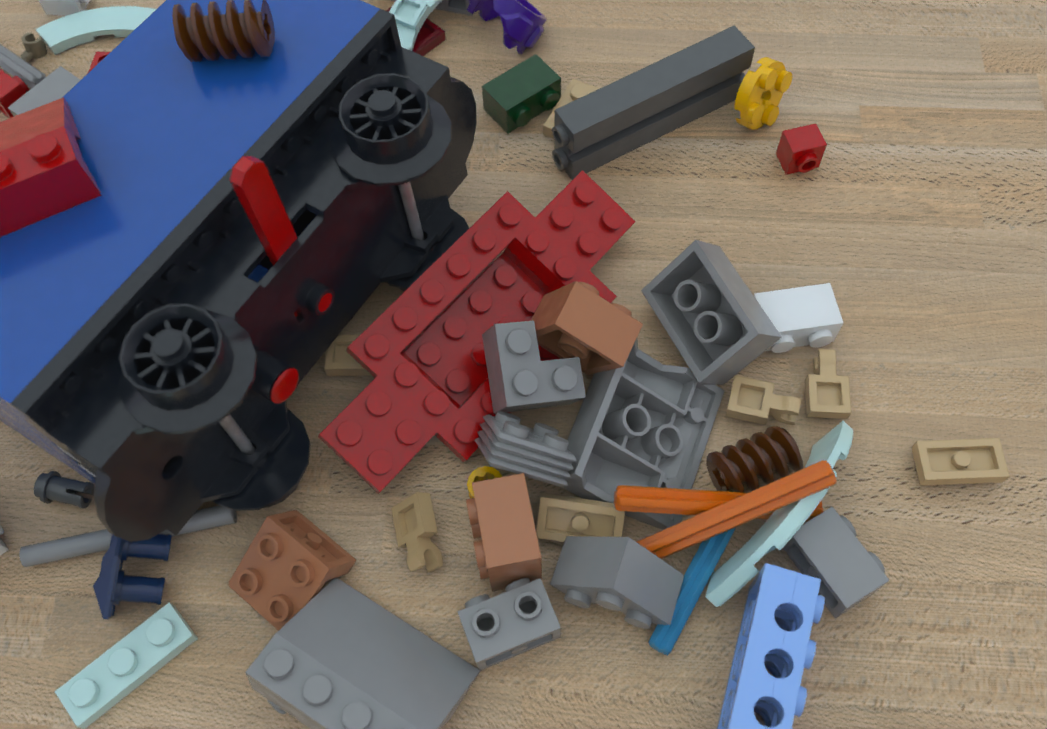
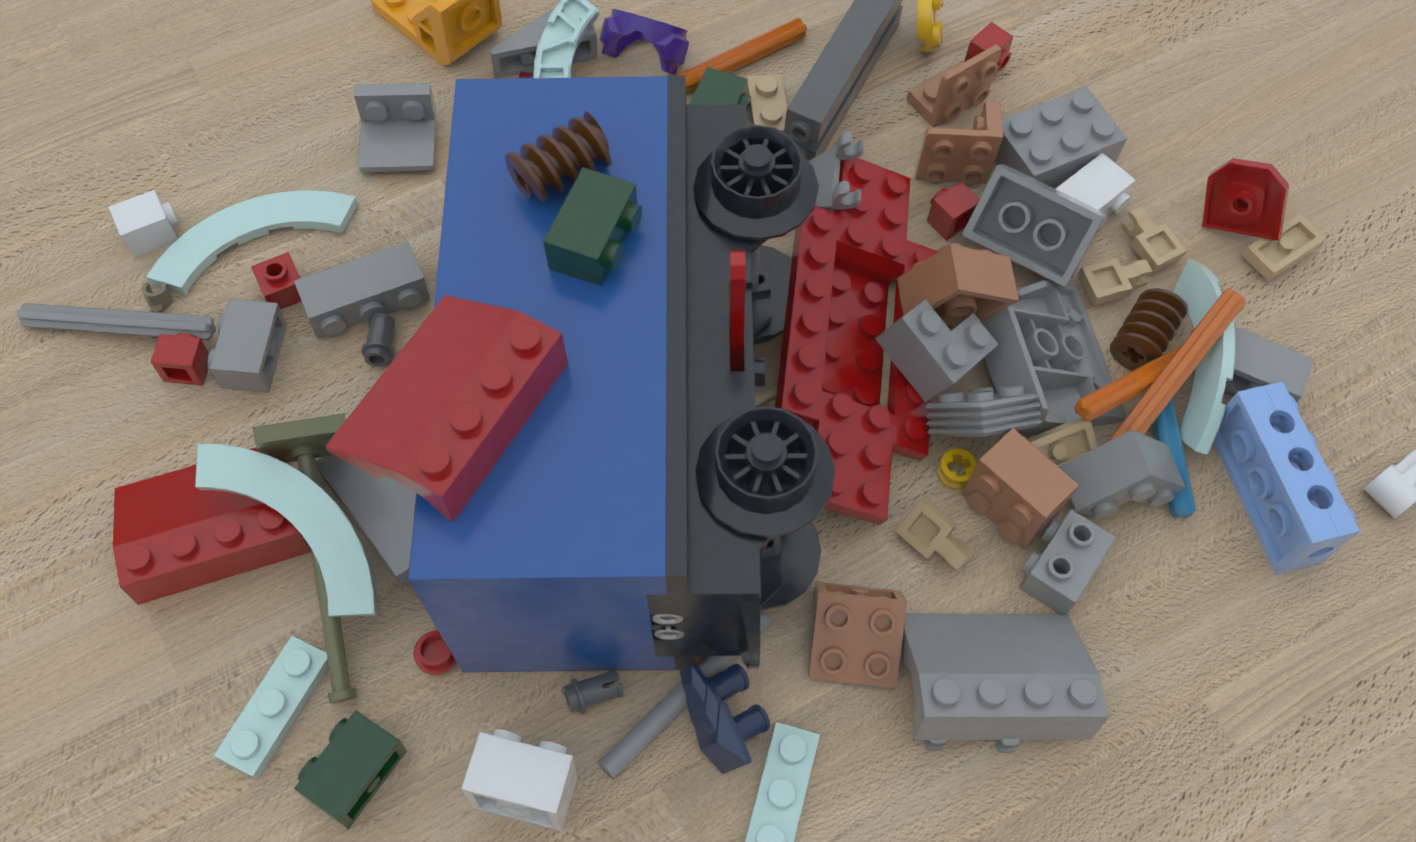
camera: 40 degrees left, 0 degrees up
(199, 93) = (592, 227): none -> dark green brick
(550, 181) = (831, 192): none -> light grey flag
(579, 60) = (747, 52): none -> orange axle
(652, 261) = (952, 210): none -> red plate
(688, 218) = (962, 153): none -> nougat bracket
(744, 165) = (955, 88): none -> nougat bracket
(798, 251) = (1059, 137): none -> light grey brick
(941, 394) = (1246, 199): none -> red piece

